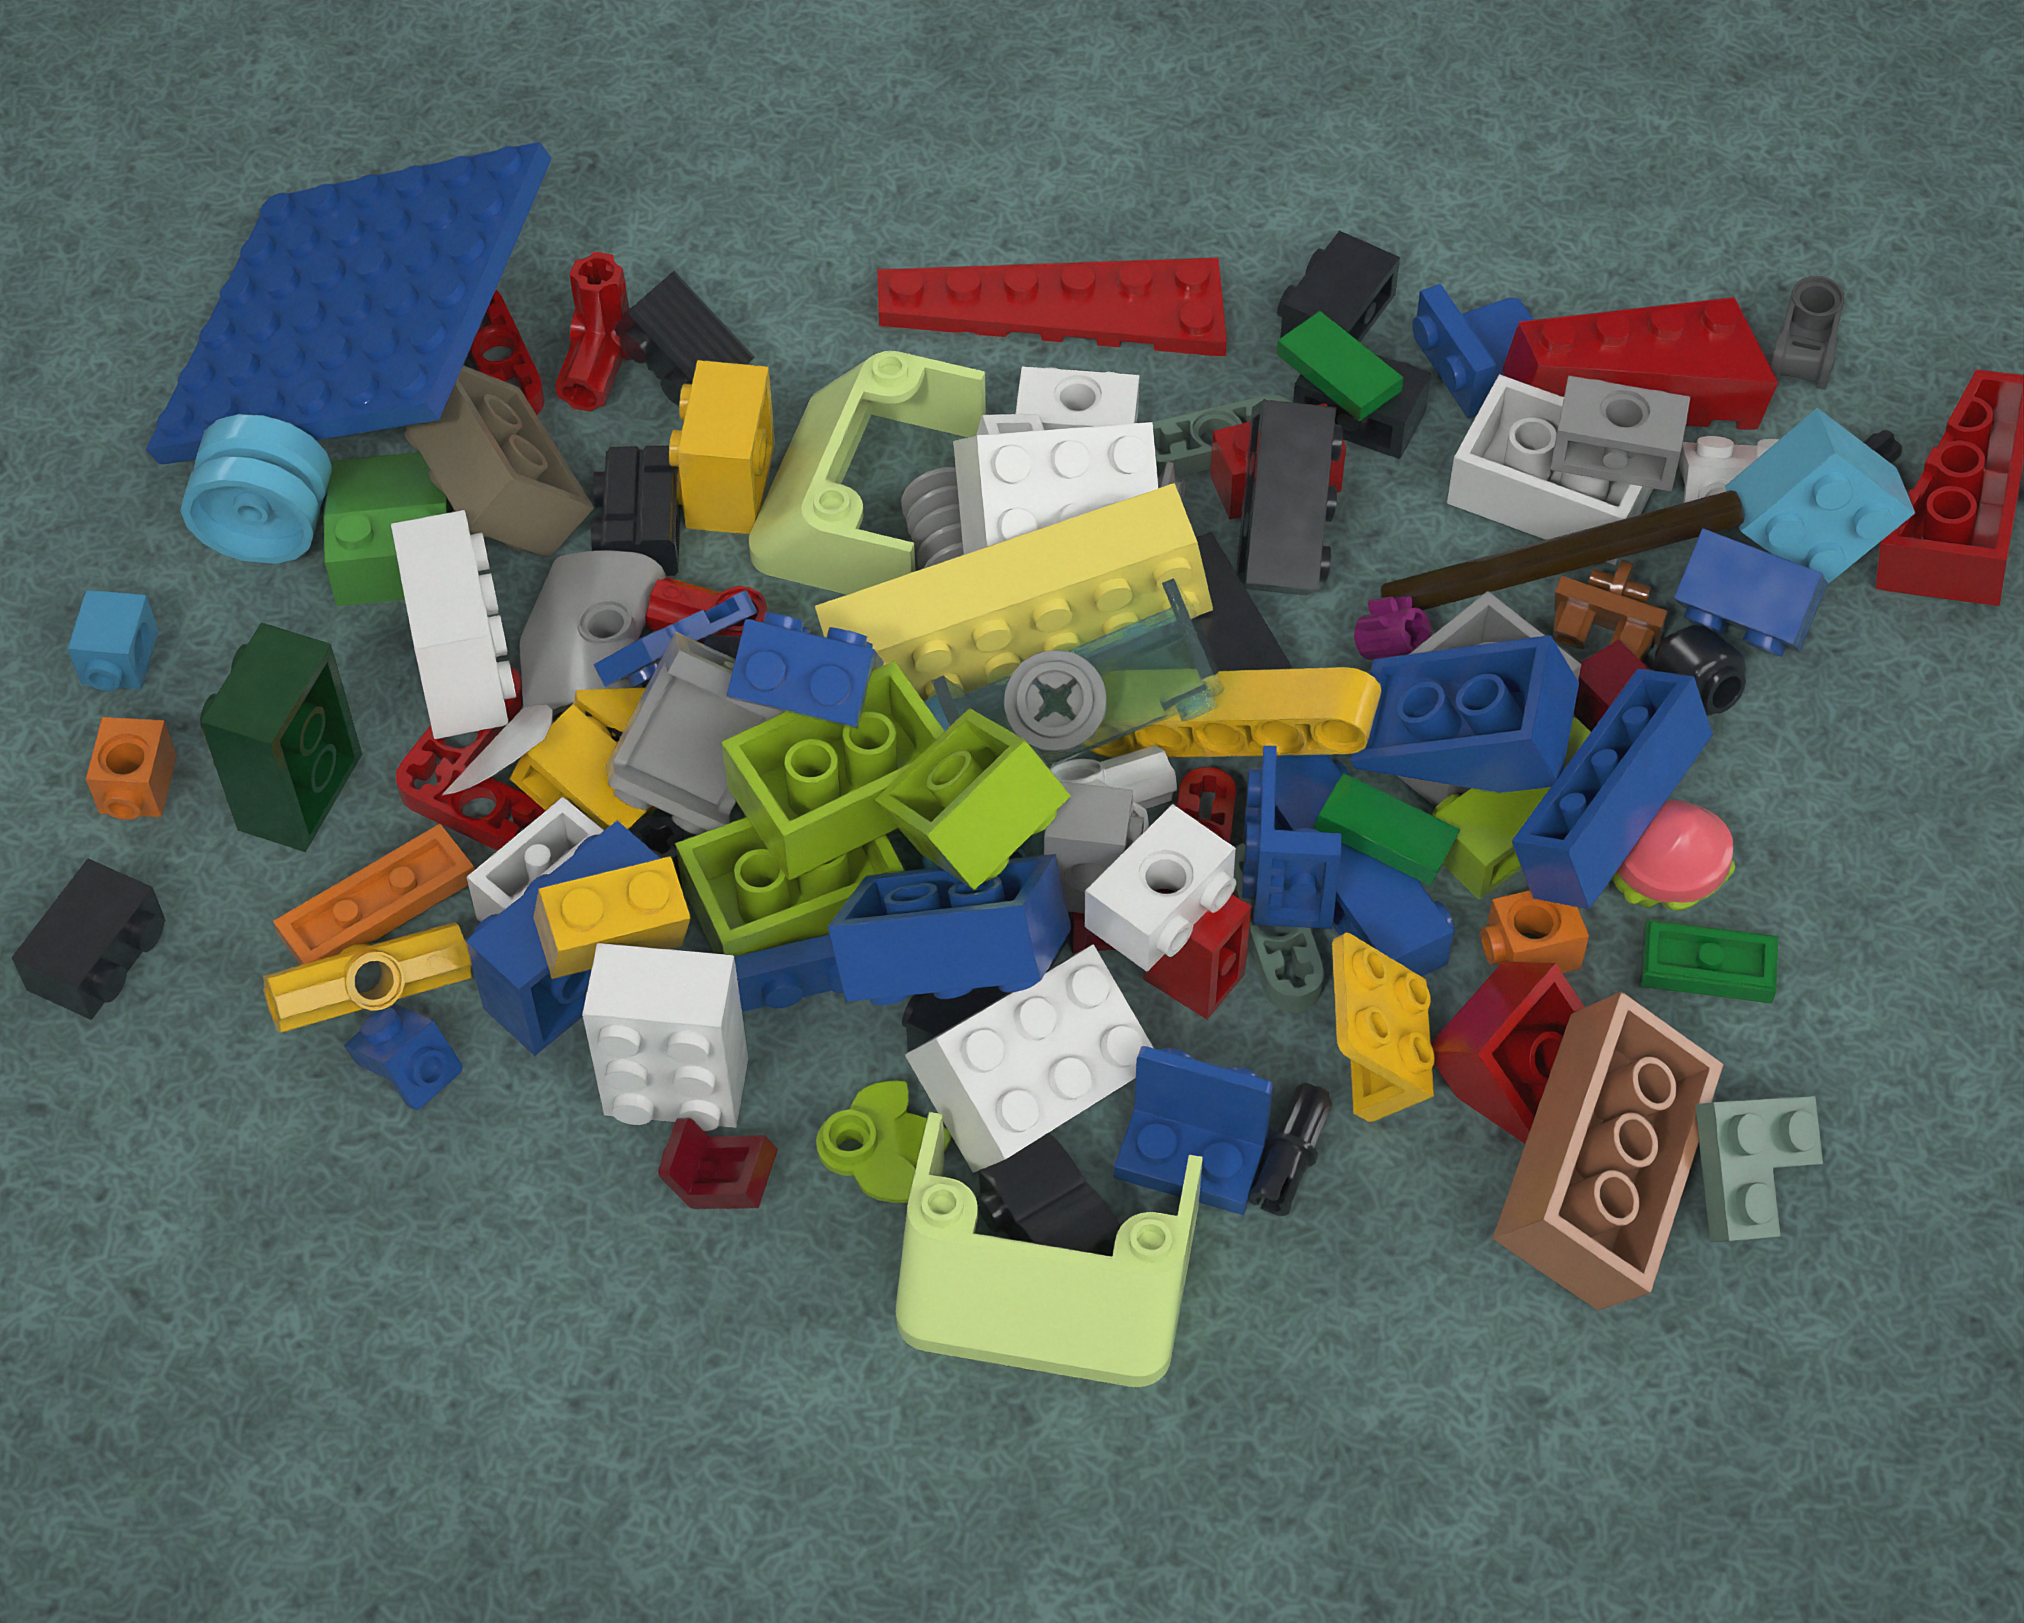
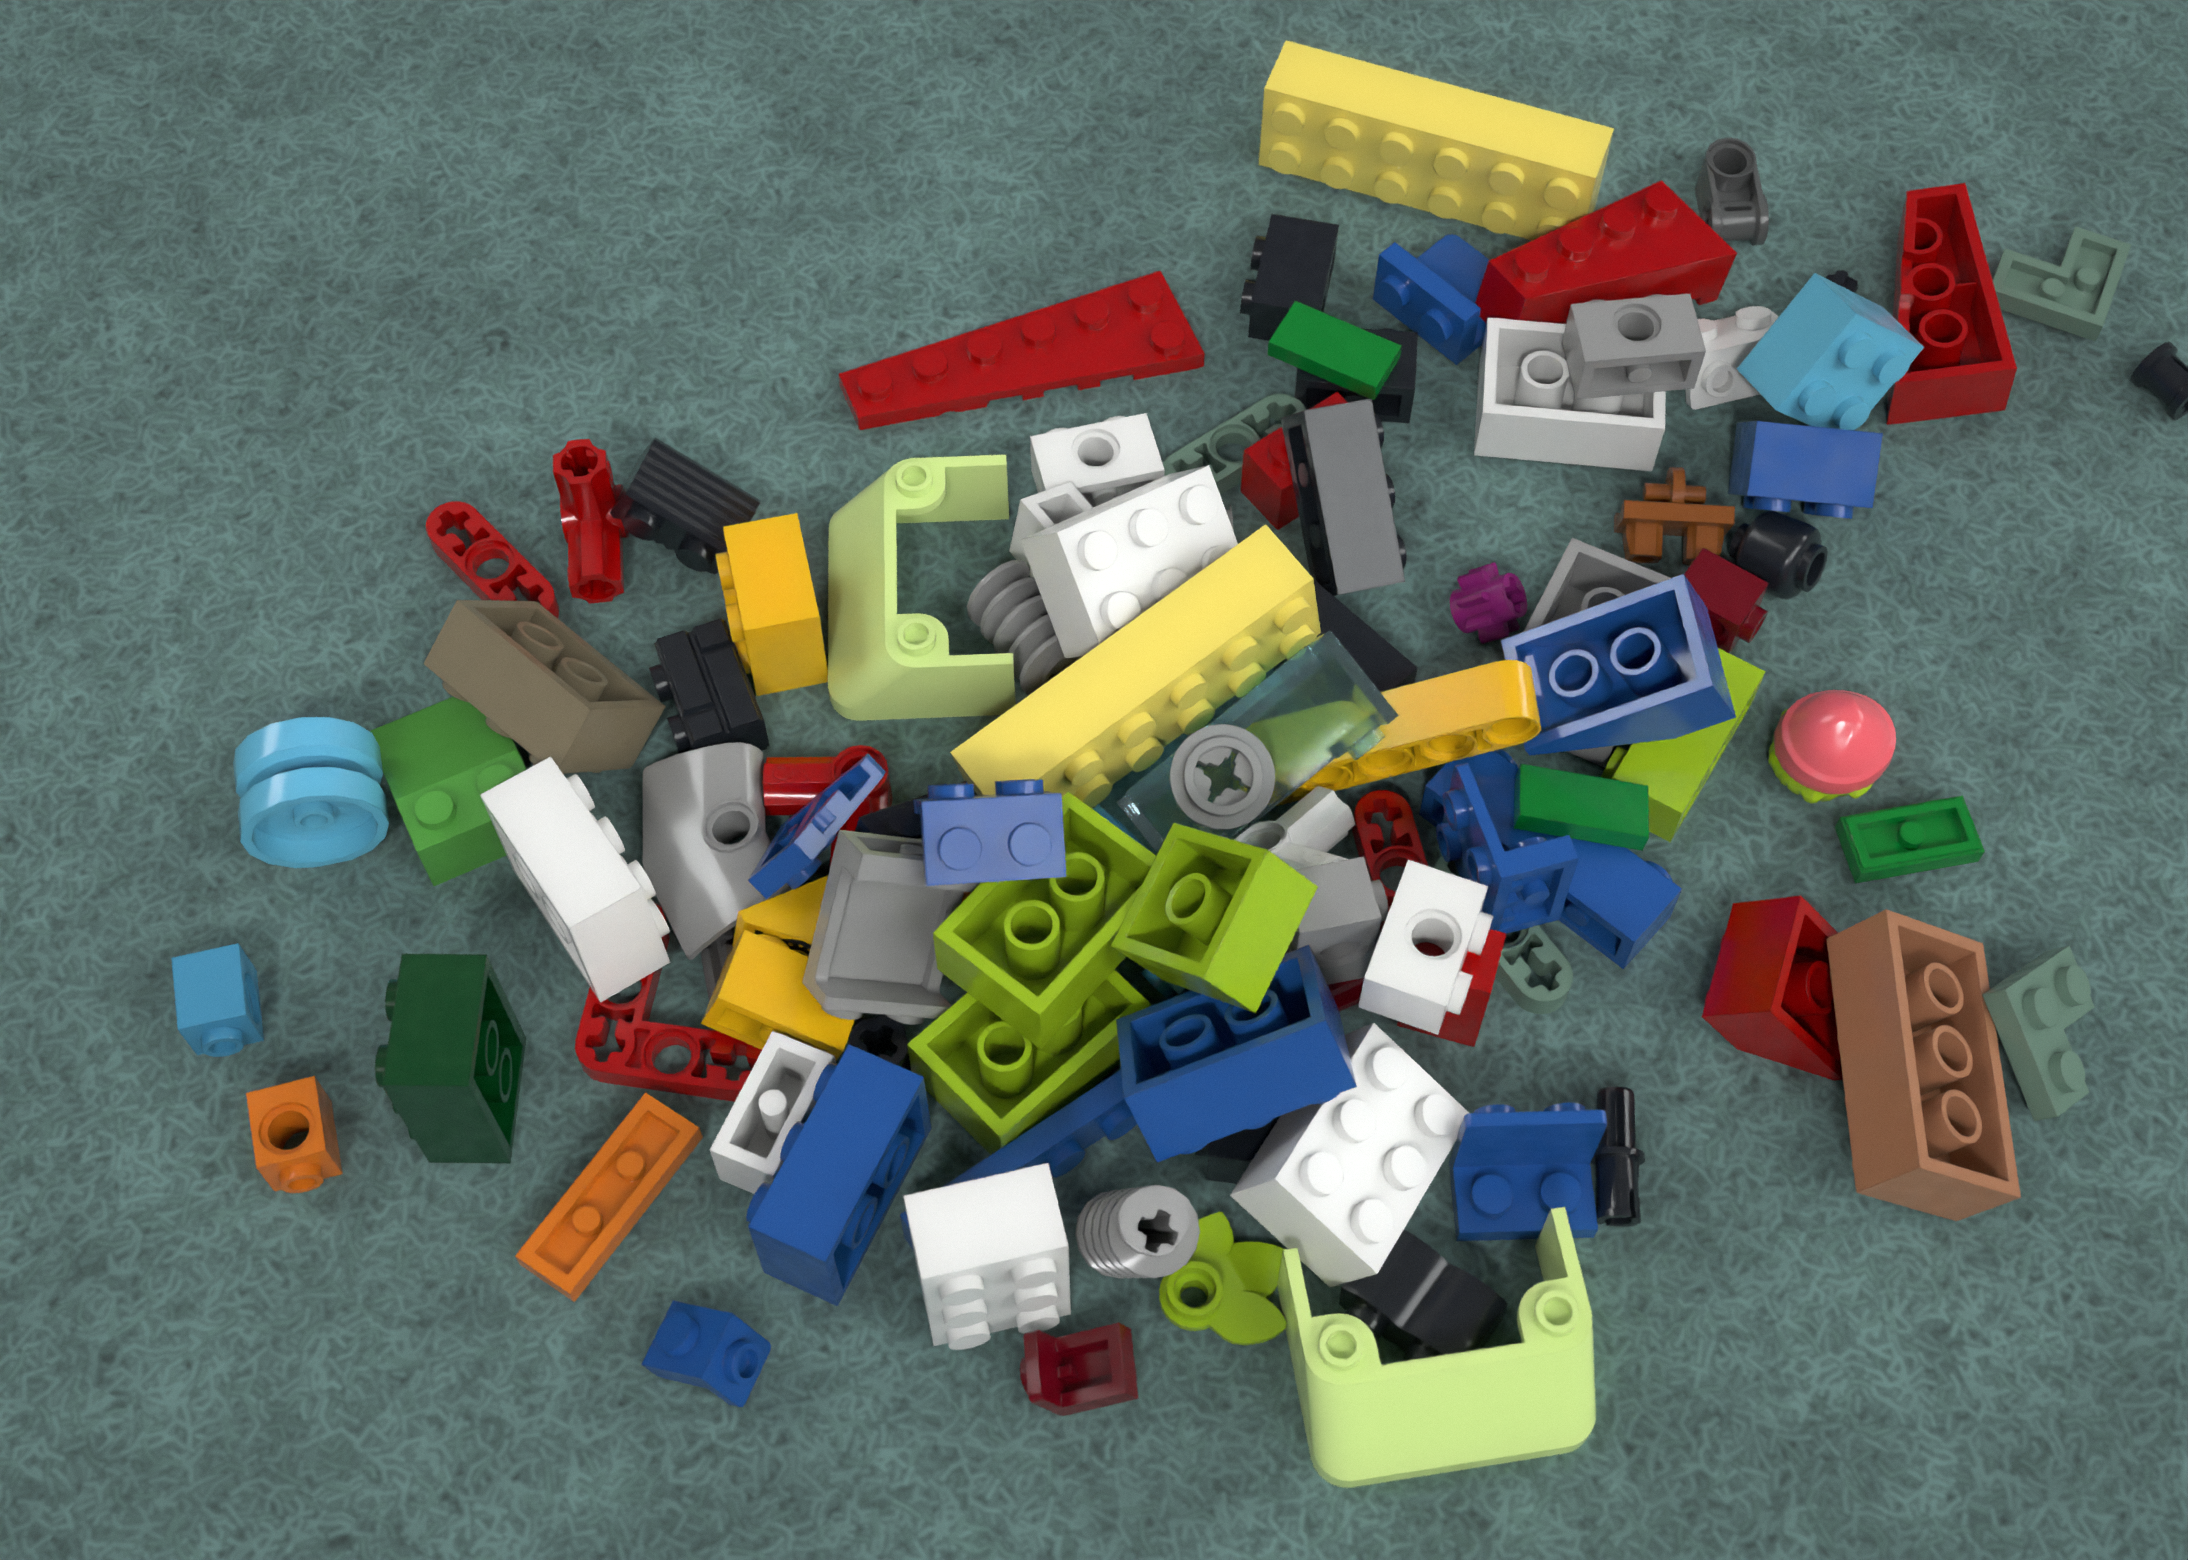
camera: 20 degrees left, 5 degrees up
(90, 939) = (328, 1340): black brick -> none
(328, 987) = (606, 1308): yellow piece -> none
(356, 301) = (336, 565): blue plate -> none
(516, 739) = (693, 989): white sticker -> none
(617, 907) = (896, 1157): yellow brick -> none
(807, 1037) = (1137, 1232): none -> light grey piece
(1381, 1028) = (1663, 1014): yellow bracket -> none
(1520, 204) = (1429, 144): none -> light yellow brick
(1557, 925) = (1756, 843): orange brick -> none
(1569, 551) = (1620, 475): dark brown axle -> none
(1612, 788) = (1780, 704): blue brick -> none

